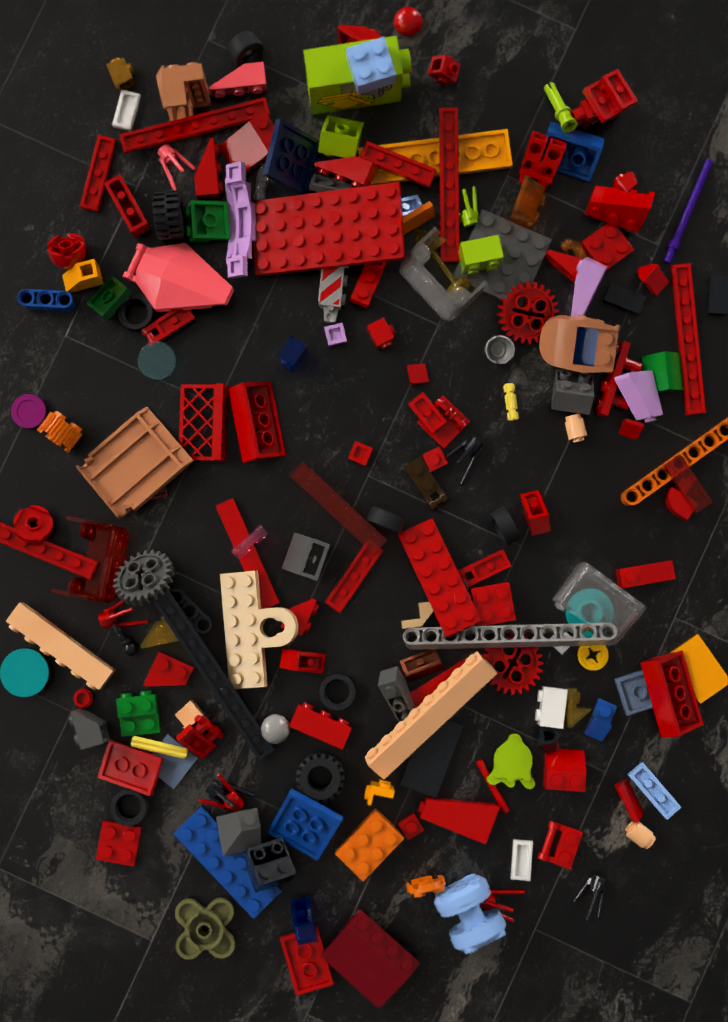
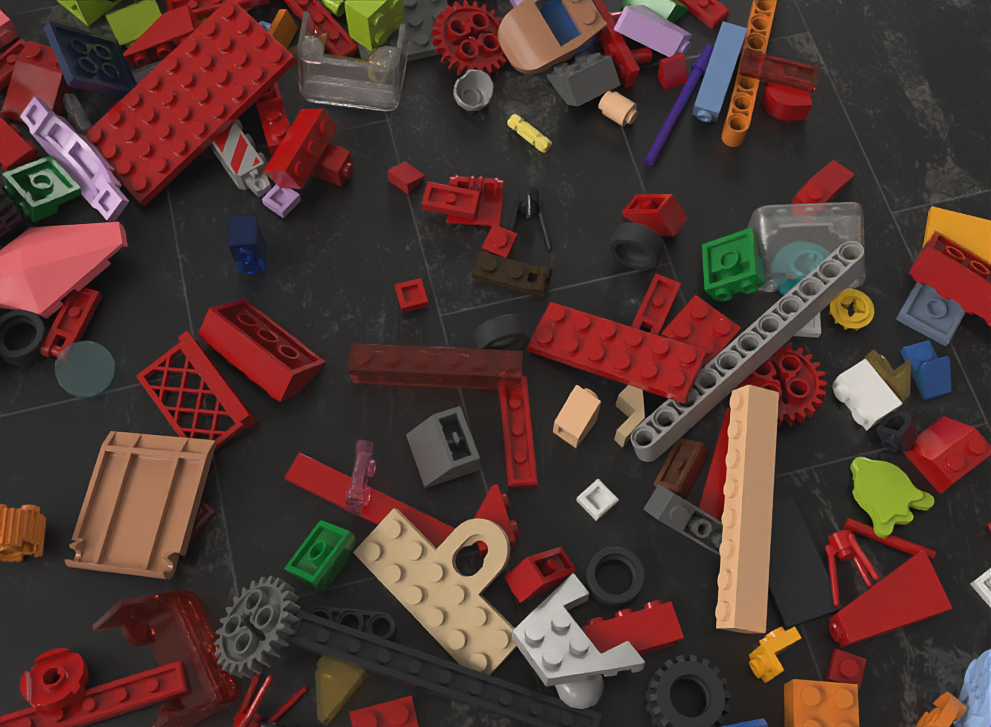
camera: 40 degrees left, 20 degrees down
(202, 562) = (322, 556): none -> green slope
(278, 702) = (559, 646): none -> light grey wing
(363, 645) = (597, 499): none -> white tile
(366, 316) = (301, 148): none -> red brick
(388, 596) = (577, 416): none -> light nougat slope
(464, 772) = (845, 546): none -> red plant
(546, 580) = (732, 265): none -> green plate
(650, 438) = (698, 69): none -> dark purple bar
(653, 455) = (719, 72): none -> medium blue slope

